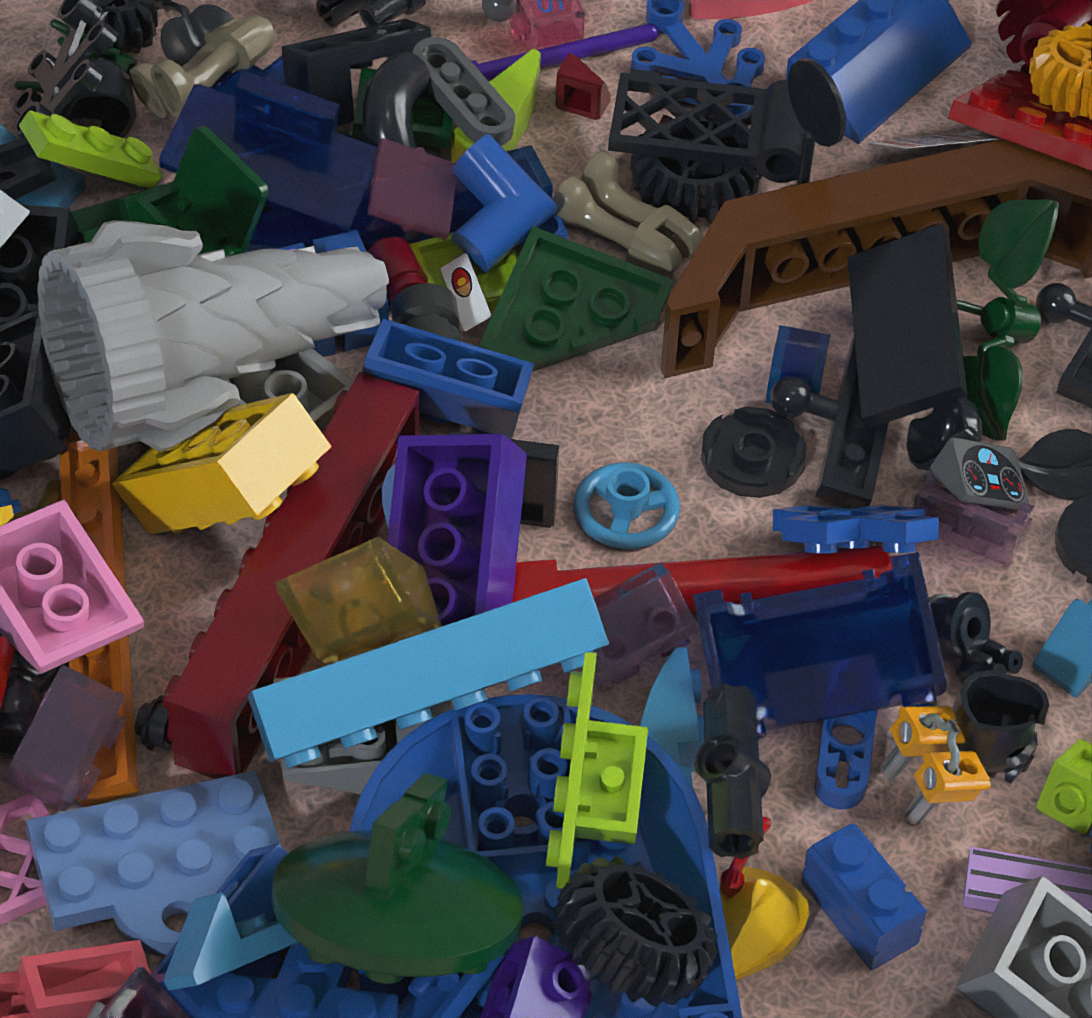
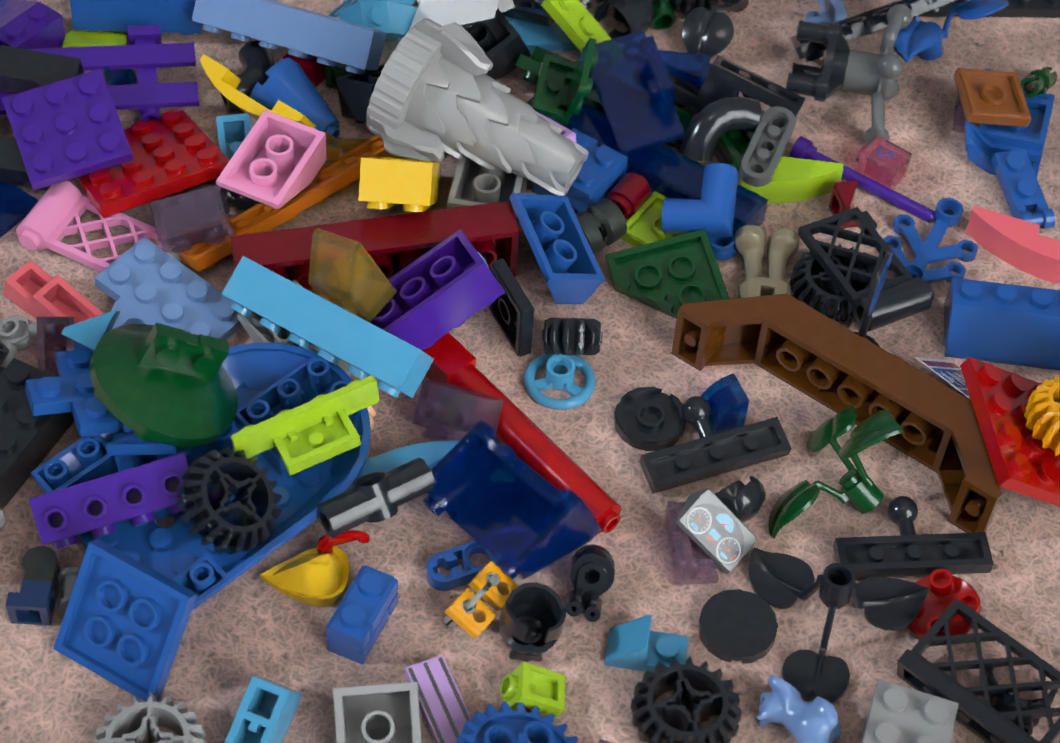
camera: 55 degrees right, 0 degrees up
(227, 48) = (705, 41): dark tan piece -> none
(412, 189) = (673, 162): clear pink piece -> none
(465, 287) = (639, 230): white sticker -> none
(593, 446) = (572, 336): none -> black gear
(828, 527) = (615, 481): blue plate -> none
(906, 326) = (786, 431): black tile -> none

